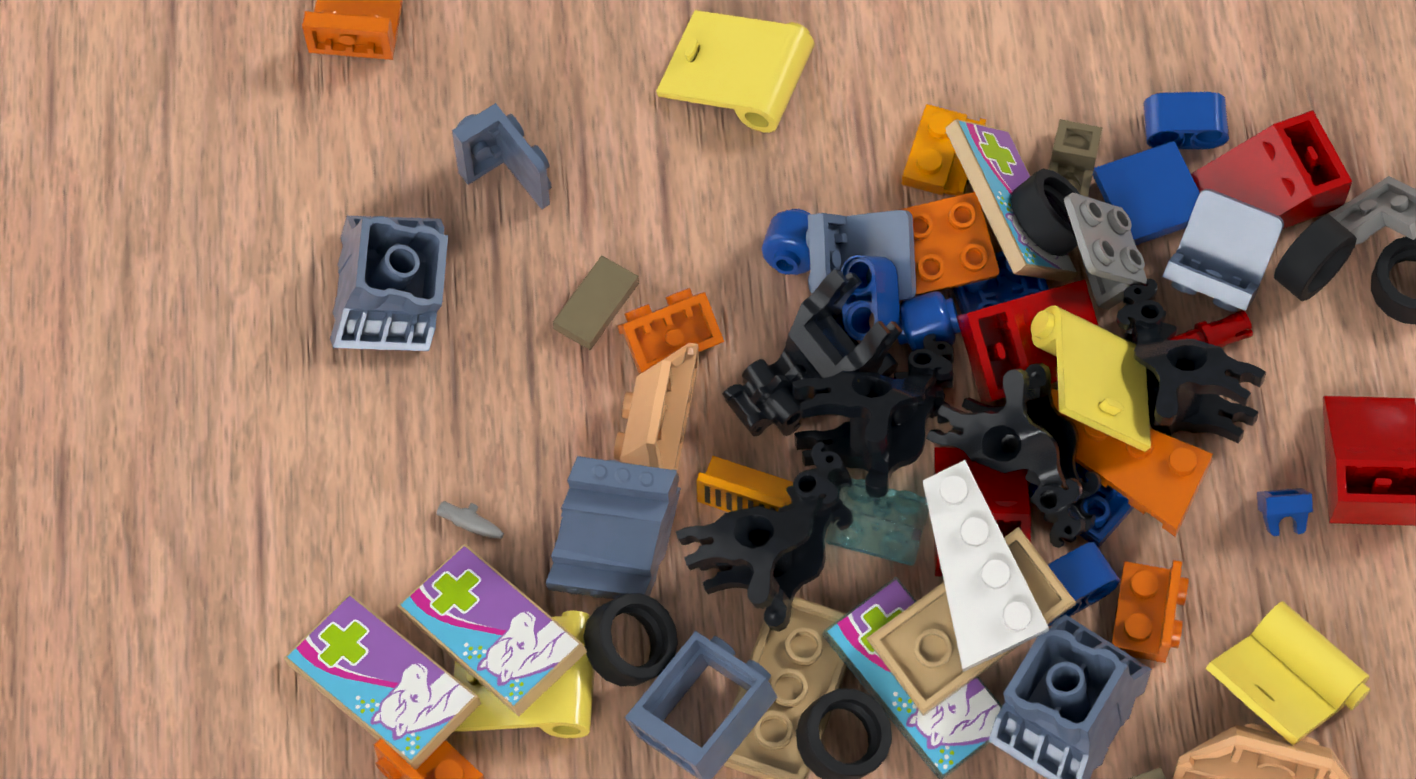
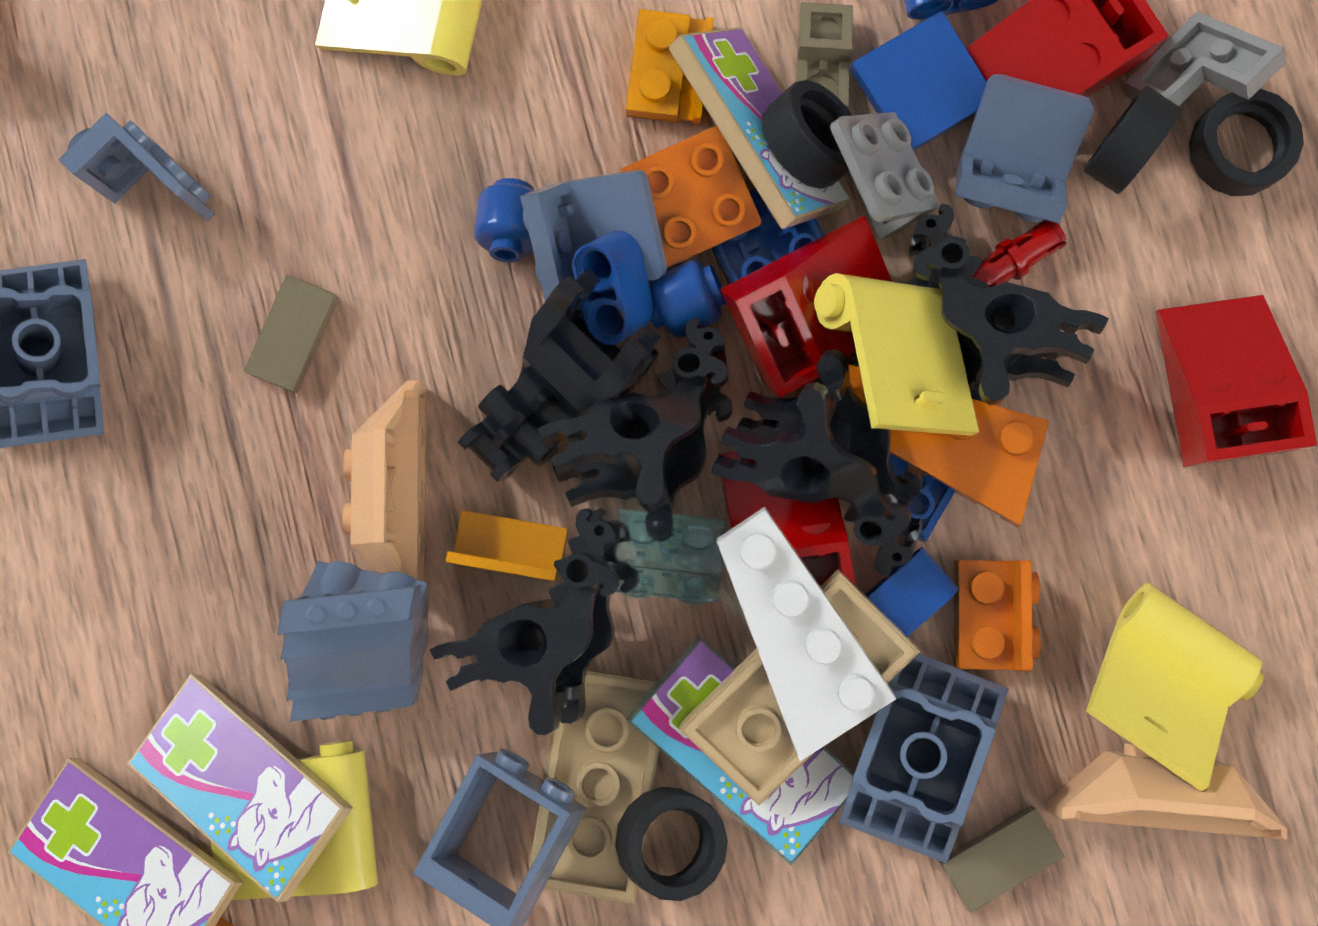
camera: 10 degrees left, 20 degrees up
(469, 520) = (192, 637): light grey helmet -> none
(603, 654) = (439, 789): black tyre -> none
(662, 332) = (382, 358): orange bracket -> none
(1285, 503) = (1134, 457): blue tile -> none

